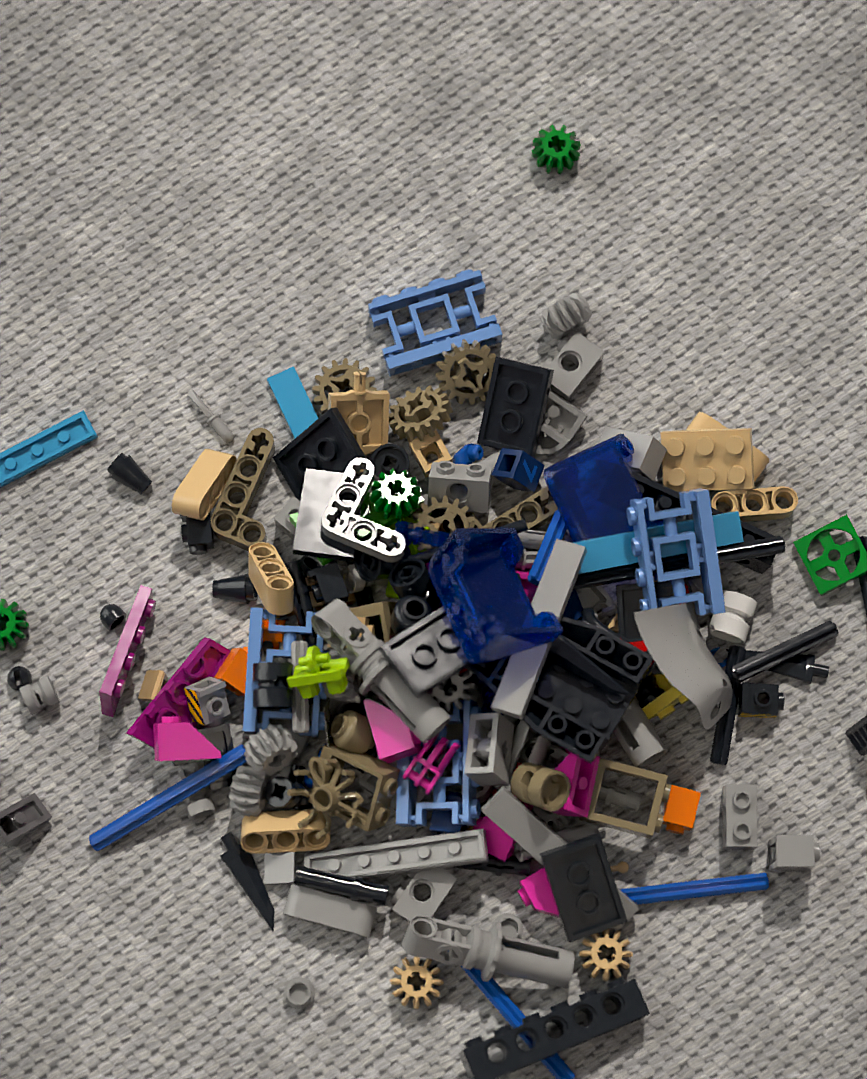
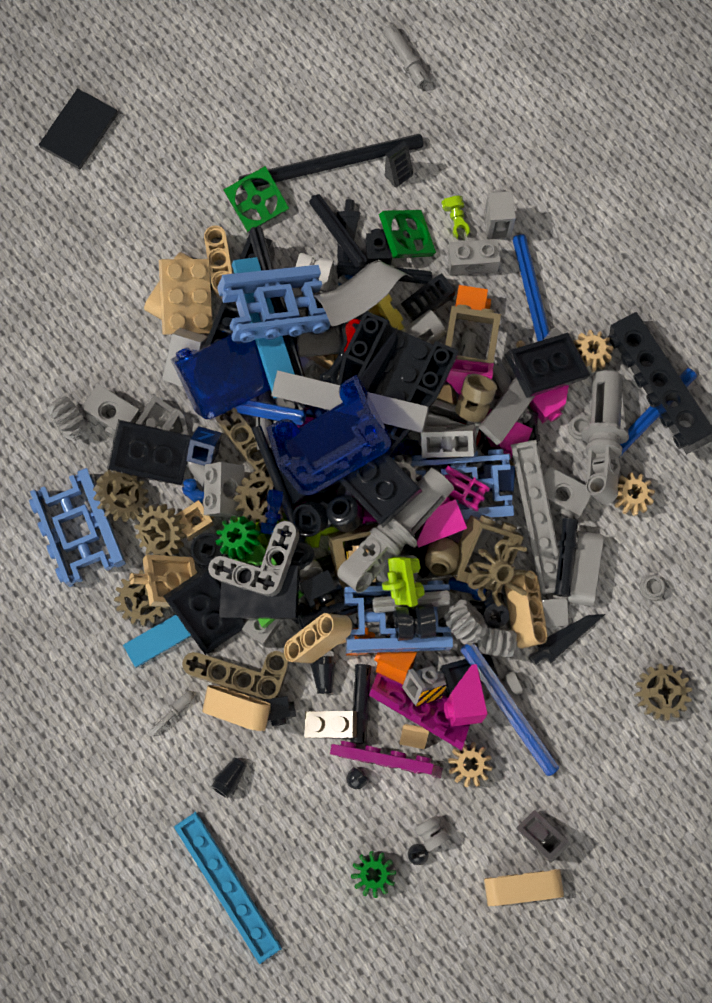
camera: 95 degrees left, 0 degrees up
(100, 746) = (470, 773): none -> tan gear
(169, 1001) = (664, 702): none -> dark tan gear
(175, 591) = (330, 724): none -> plate
(196, 628) = (361, 701): none -> black pin
(552, 756) = (448, 394): none -> tan slope
(693, 782) = (439, 280): none -> black slope
(779, 759) = (393, 236): none -> green piece
(801, 804) = (455, 205): none -> lime piece

